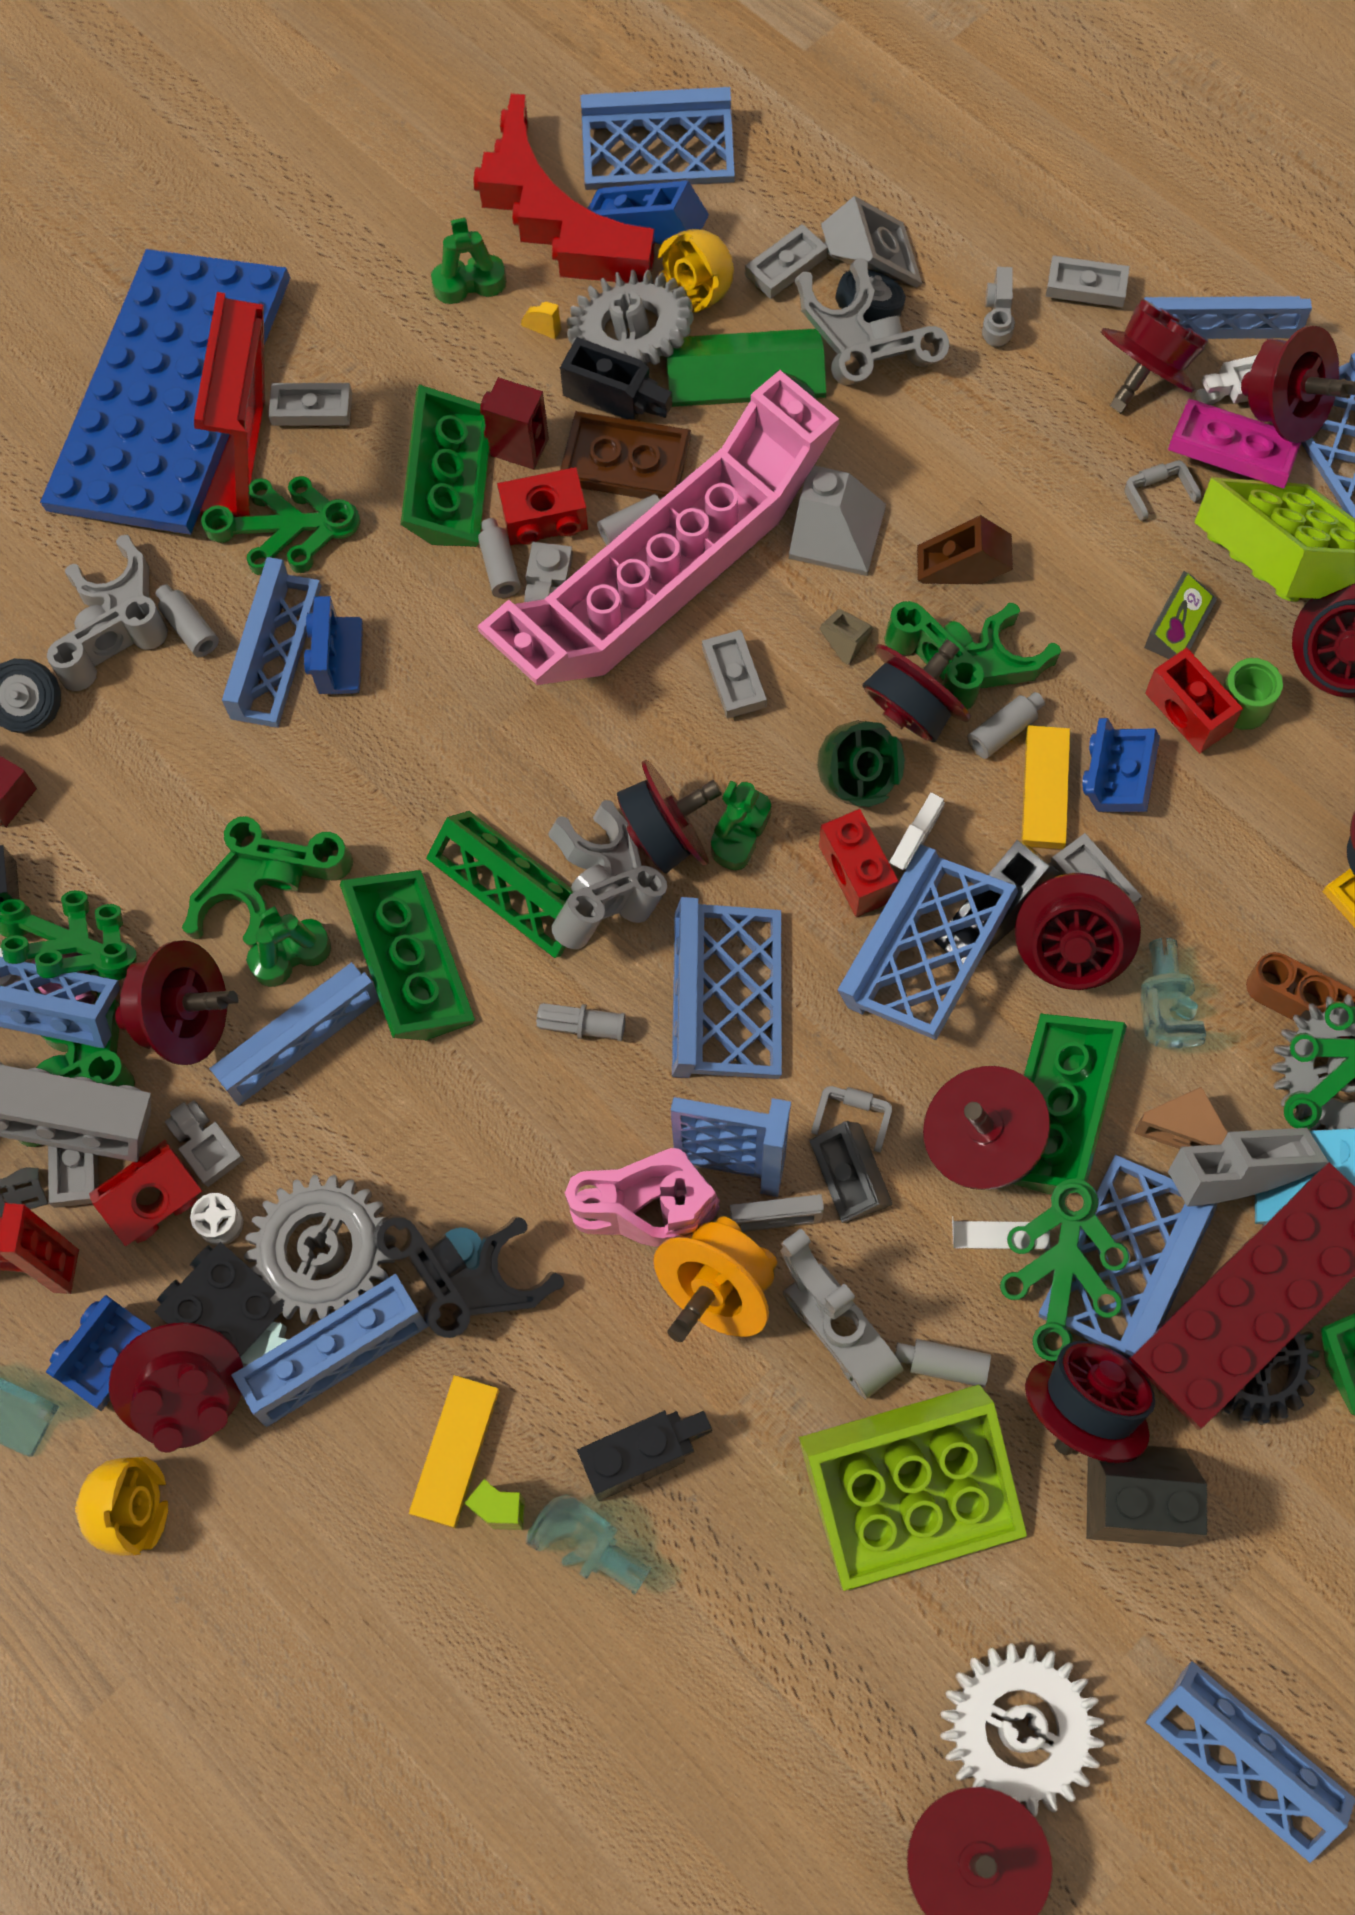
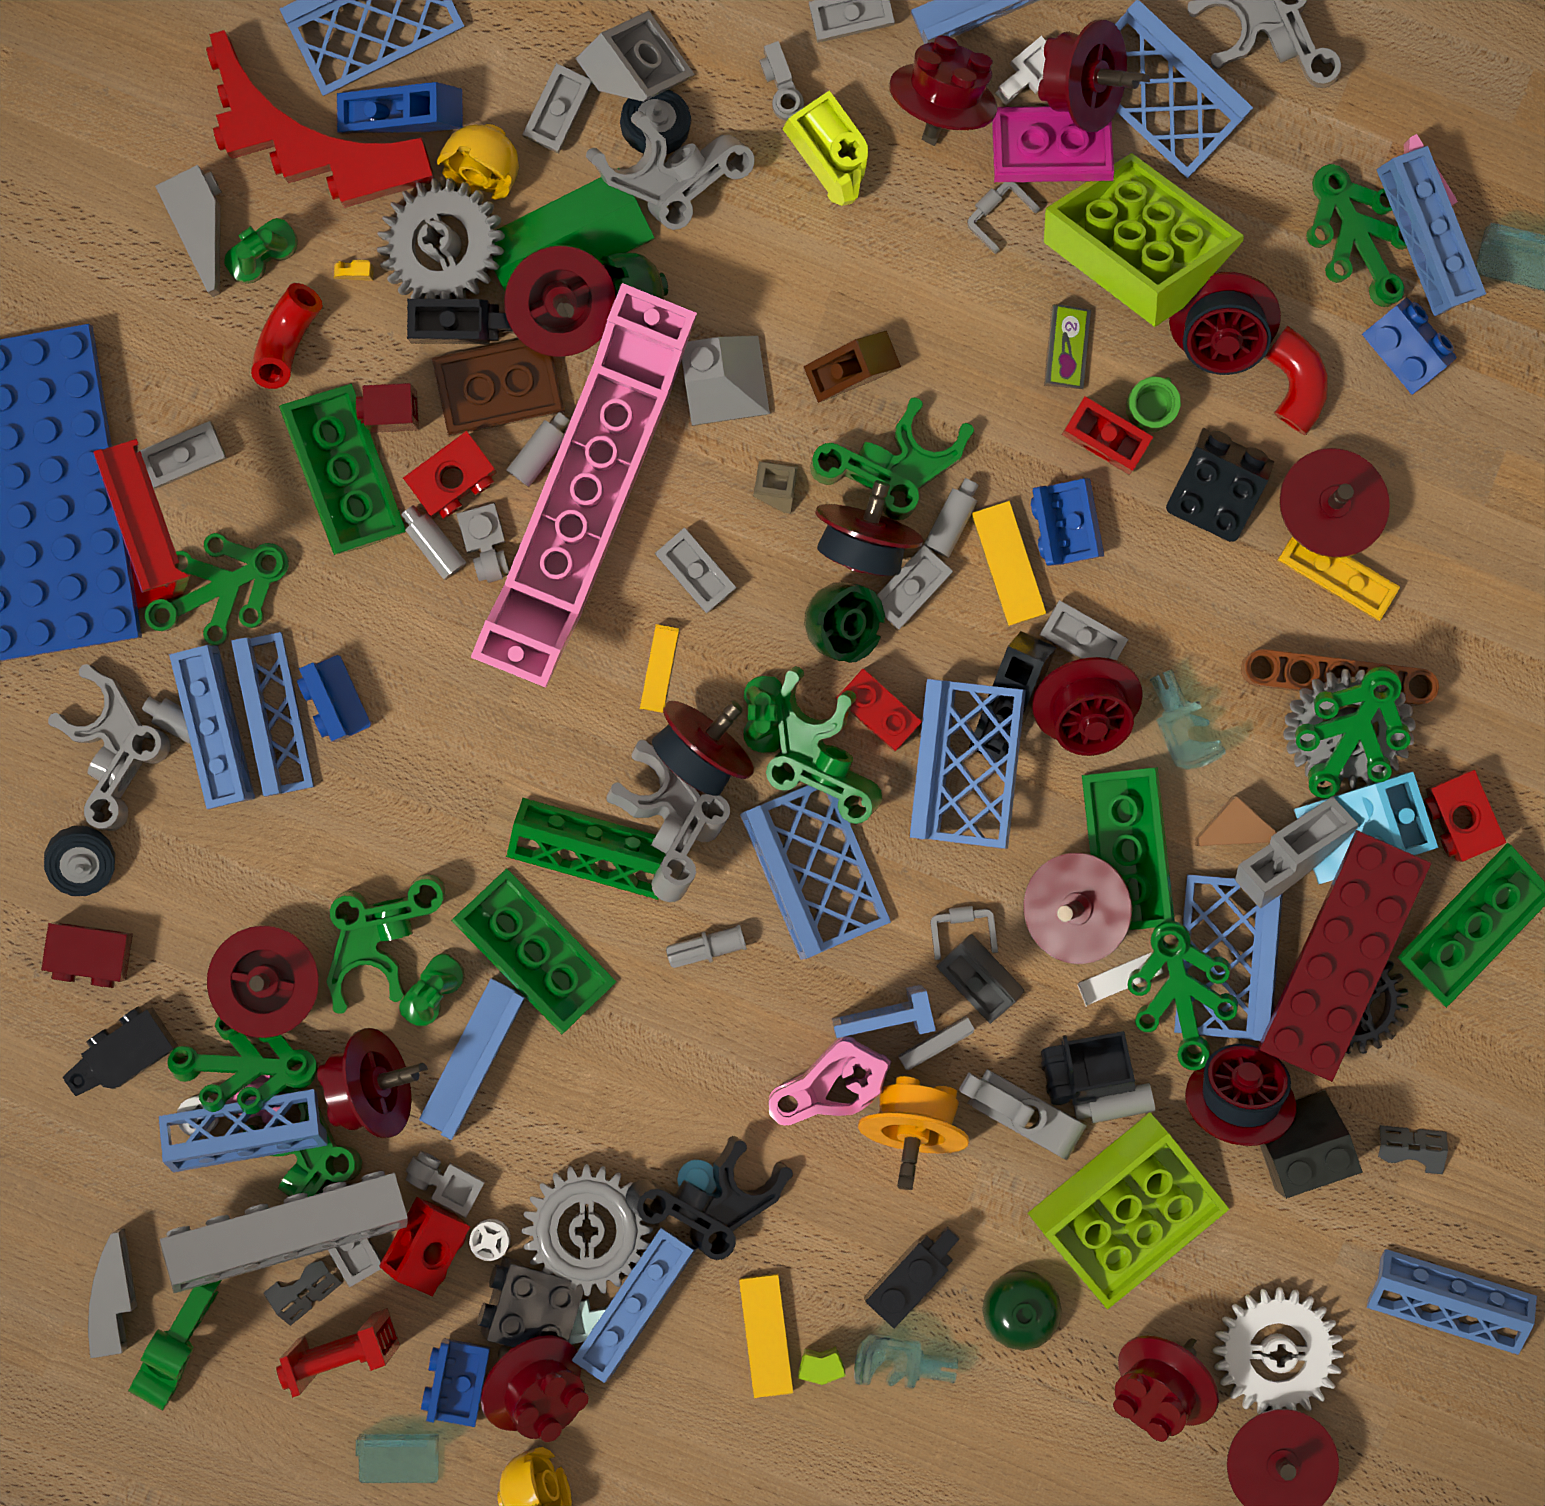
camera: 20 degrees left, 20 degrees up
(126, 863) = (262, 981): none -> dark red piece
(210, 627) = (212, 726): none -> medium blue fence
(425, 224) = (196, 215): none -> light grey slope
(453, 339) = (282, 335): none -> red cylinder
(662, 744) = (659, 668): none -> yellow piece
(710, 386) = (559, 300): none -> dark red piece
(747, 1548) = (1021, 1310): none -> dark green cylinder
(769, 875) = (815, 762): none -> green piece
(875, 1701) = (1163, 1386): none -> dark red piece
(918, 831) = (918, 663): white tile -> none
(929, 1307) = (1087, 1069): none -> black piece
(941, 768) = (913, 586): none -> light grey plate
(1021, 369) = (819, 135): none -> neon yellow piece
(1282, 1577) = (1432, 1159): none -> dark grey piece
(1288, 794) = (1220, 485): none -> black bracket

